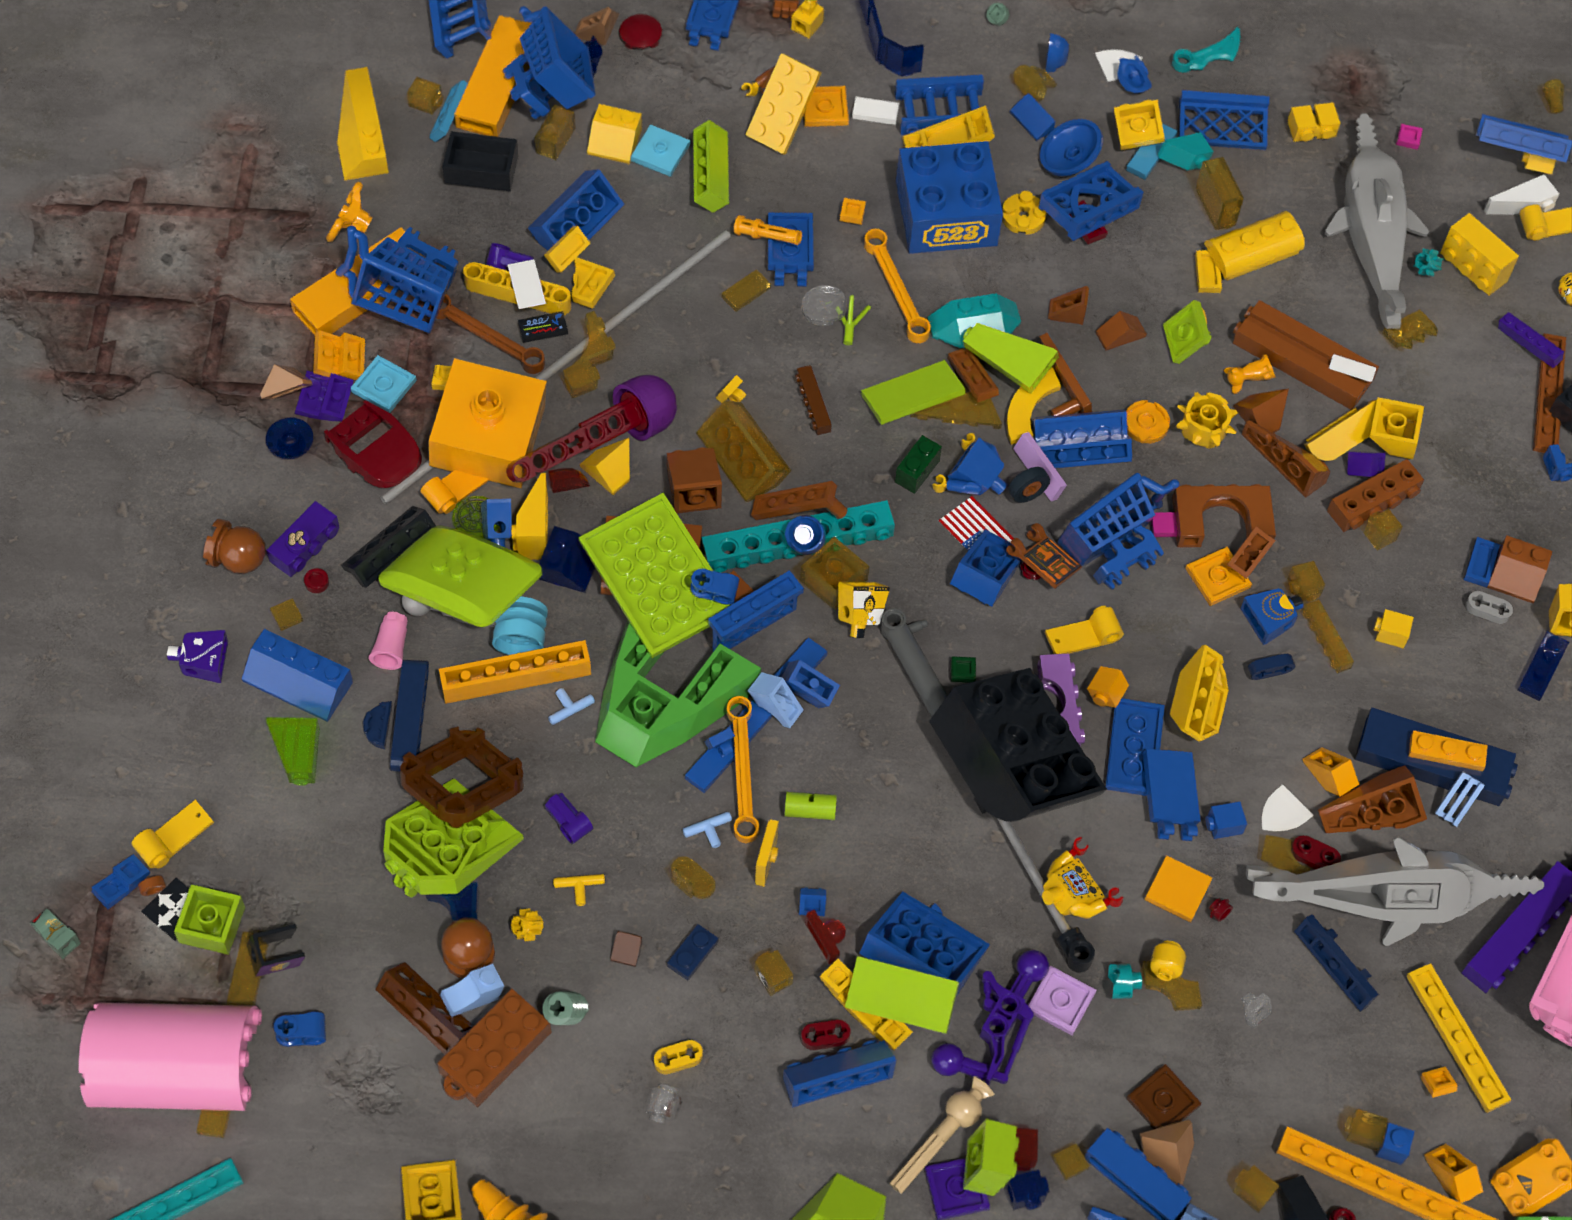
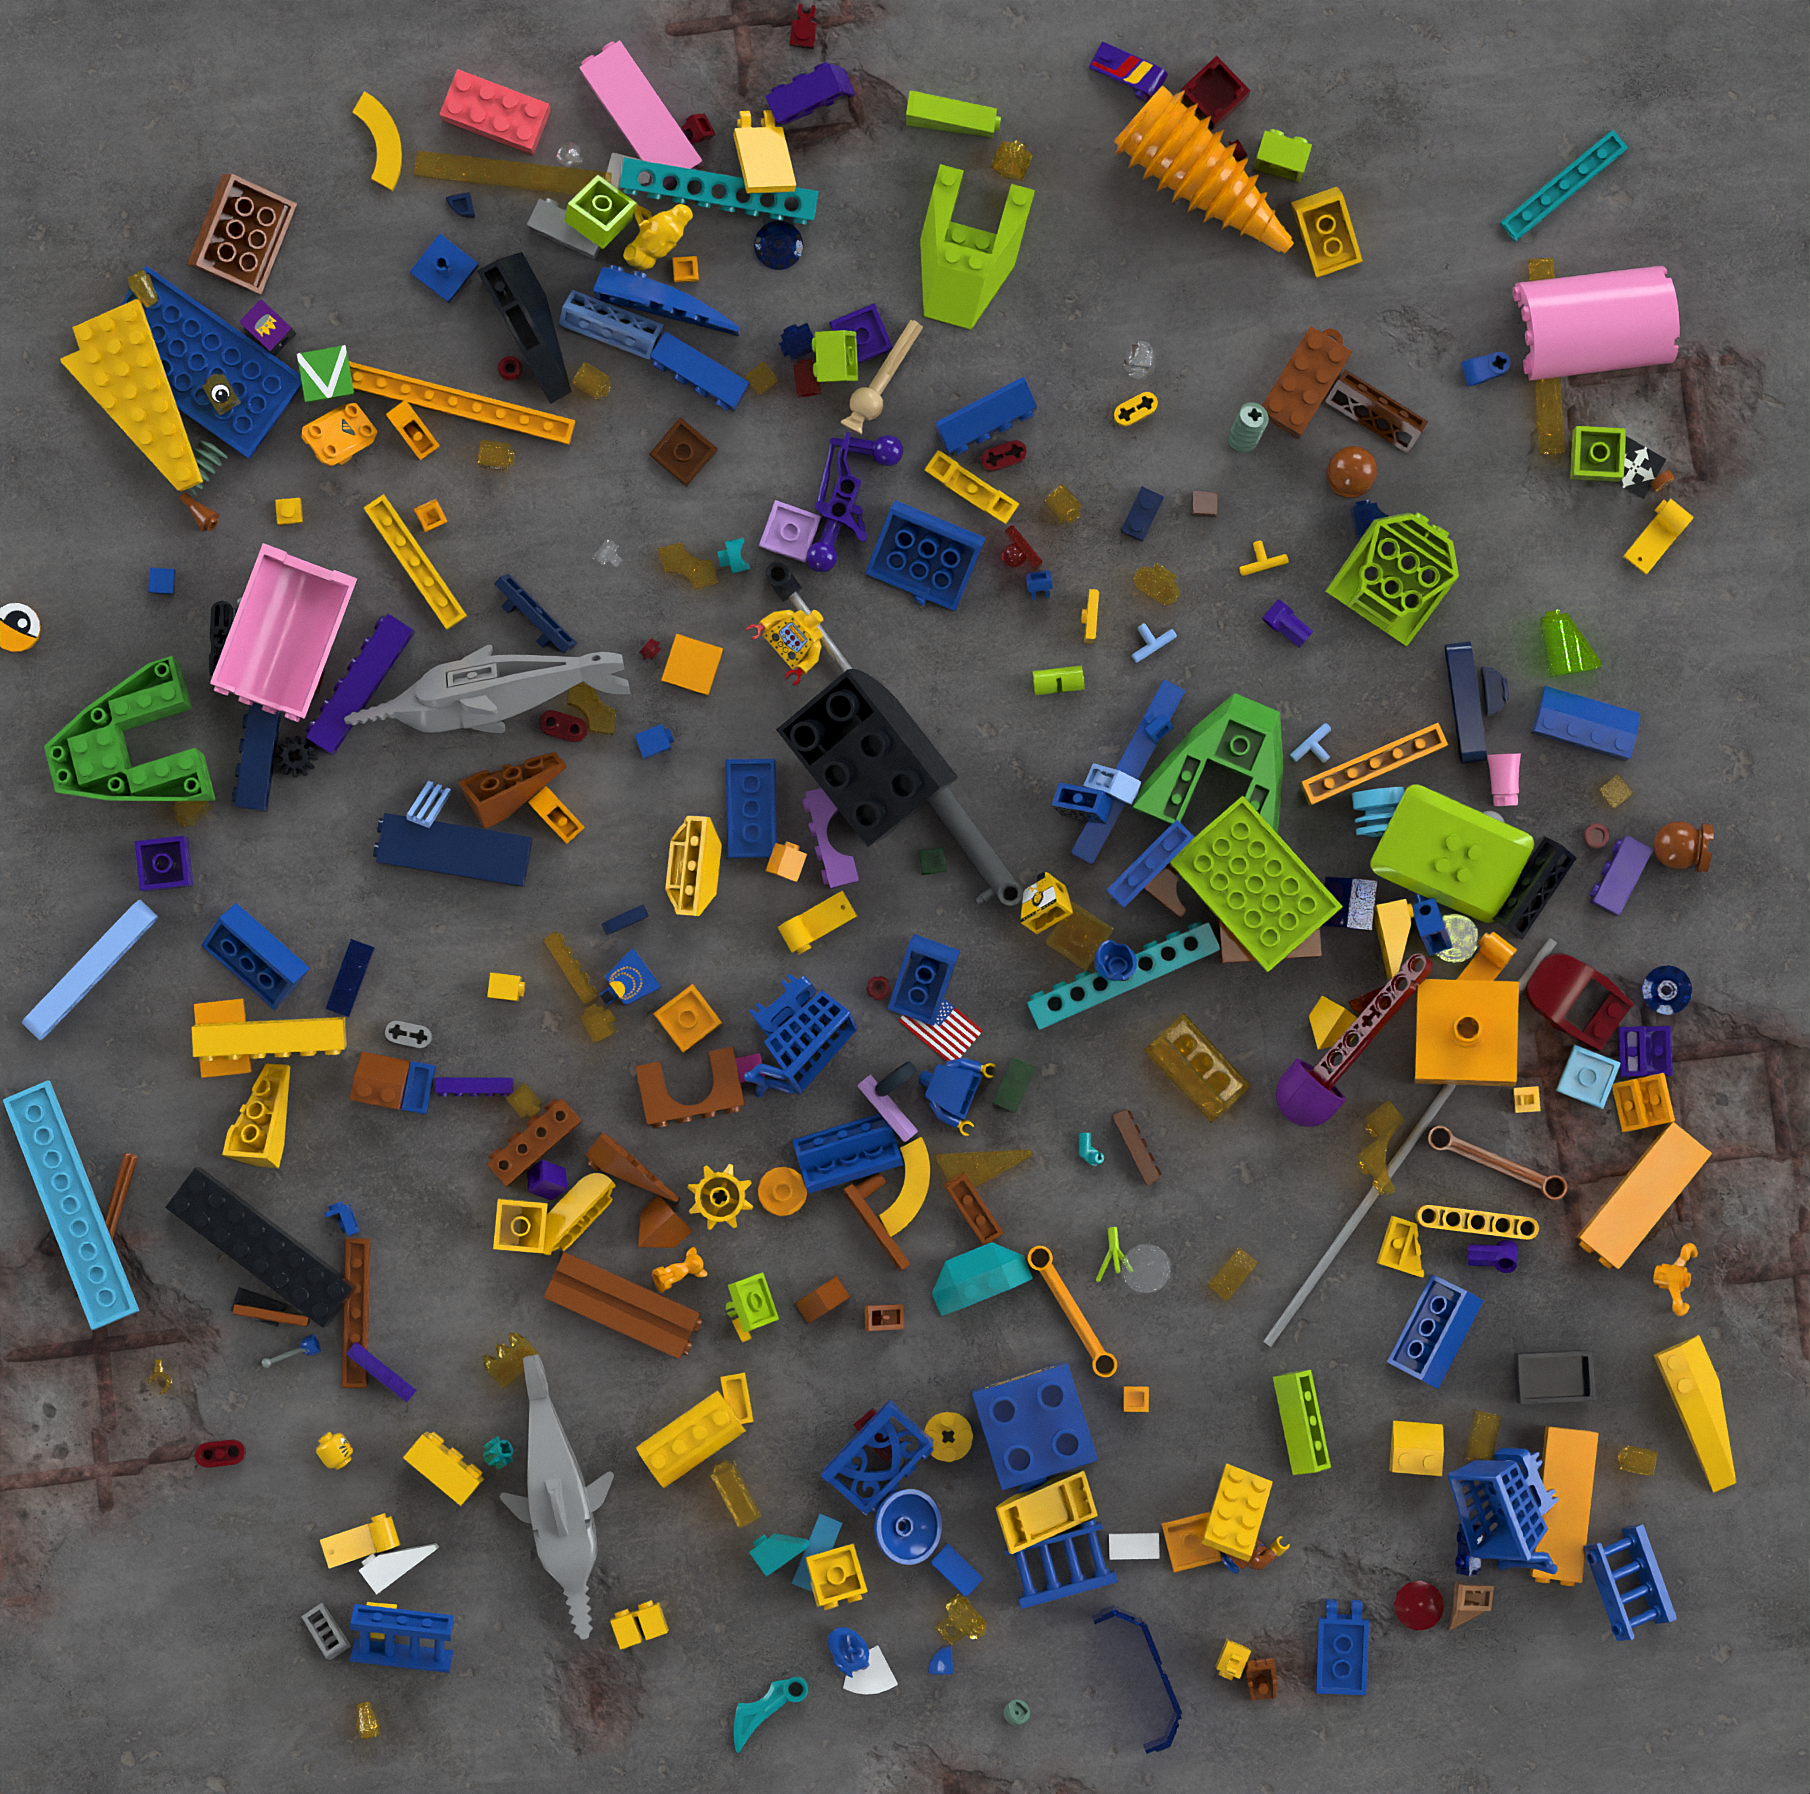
camera: 175 degrees right, 25 degrees up
(55, 933) = (1738, 418): sand green leg -> none
(121, 882) = (1693, 482): blue slope -> none
(201, 654) = (1685, 727): dark purple torso -> none
(262, 968) = (1537, 444): black piece -> none
(283, 381) = (1687, 1053): medium nougat slope -> none
(297, 541) = (1624, 862): tile -> none
(393, 264) = (1605, 1194): blue piece -> none
(448, 110) = (1607, 1444): dark azure tile -> none
(459, 808) = (1424, 658): reddish brown plate -> none
(474, 991) = (1337, 430): light blue arch -> none
(526, 284) = (1467, 1221): white sticker -> none
(527, 924) = (1302, 506): yellow gear -> none
(543, 327) = (1439, 1183): black tile -> none
(567, 249) = (1434, 1282): yellow tile -> none
(660, 150) = (1362, 1442): medium azure plate -> none
(694, 480) = (1242, 1022): dark orange slope -> none
(717, 586) = (1191, 872): blue piece -> none
(732, 391) = (1224, 1138): yellow tile -> none
(742, 769) = (1130, 705): light orange piece -> none
(758, 229) = (1233, 1349): light orange pin -> none
(786, 256) = (1196, 1341): blue tile -> none
(798, 500) = (1130, 1004): dark orange piece -> none
(858, 403) = (1088, 1152): none -> teal arm
(902, 994) = (940, 495): lime tile -> none
(913, 392) = (1033, 1175): lime tile -> none
(1011, 355) = (937, 1230): lime slope -> none
(1045, 557) = (866, 997): flag -> none
(1168, 960) = (695, 579): yellow head -> none
(1169, 1148) = (672, 404): medium nougat slope -> none
(1172, 792) = (710, 762): blue tile -> none
(1225, 103) = (747, 1629): blue fence -> none
(1251, 552) = (659, 1040): dark orange slope -> none
(1283, 811) = (598, 768): white sticker -> none
(1352, 368) = (571, 1288): white sticker -> none
(1396, 1144) = (467, 445): blue brick -> none
(1409, 136) = (529, 1632): dark pink tile -> none
(1428, 553) = (474, 1086): none -> dark purple piece
(1448, 750) = (444, 848): light orange plate -> none

